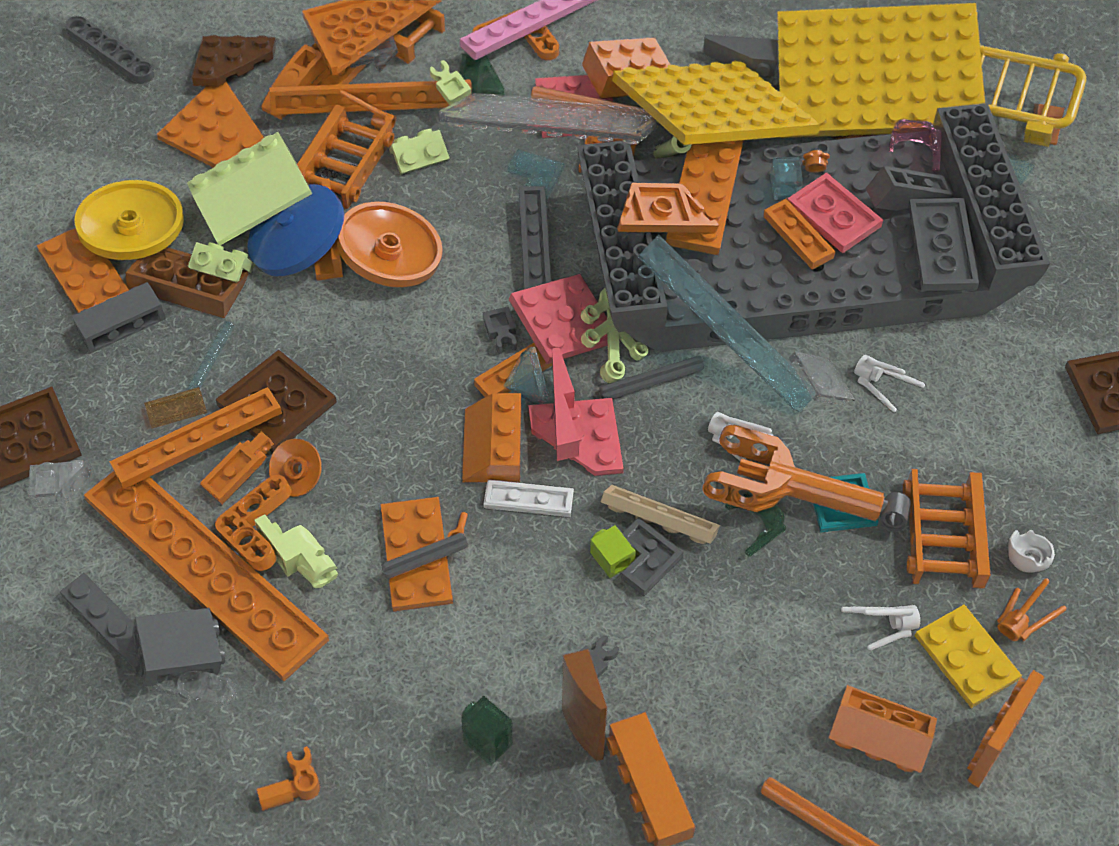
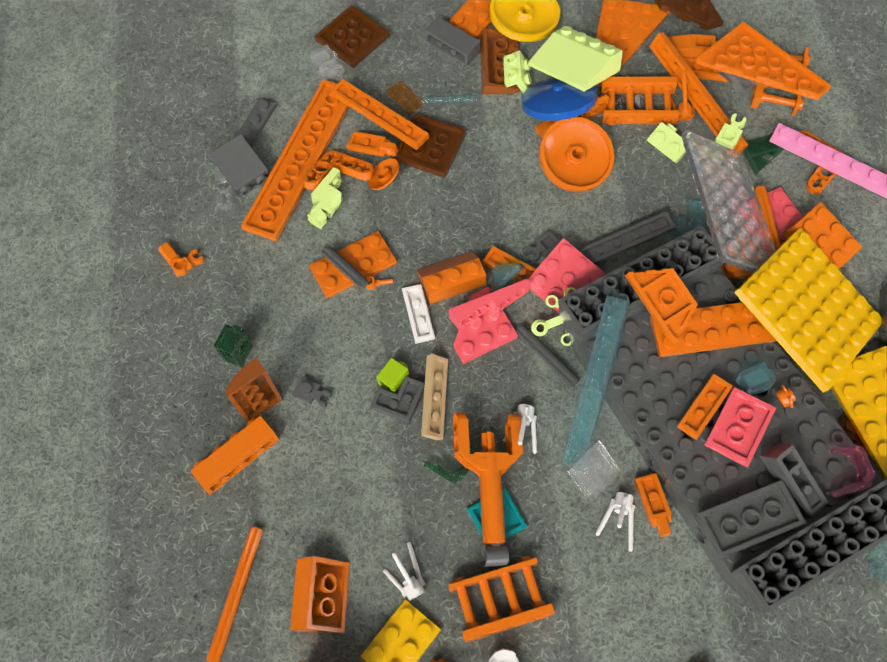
camera: 75 degrees right, 10 degrees up
(878, 339) = (654, 503): none -> orange hinge

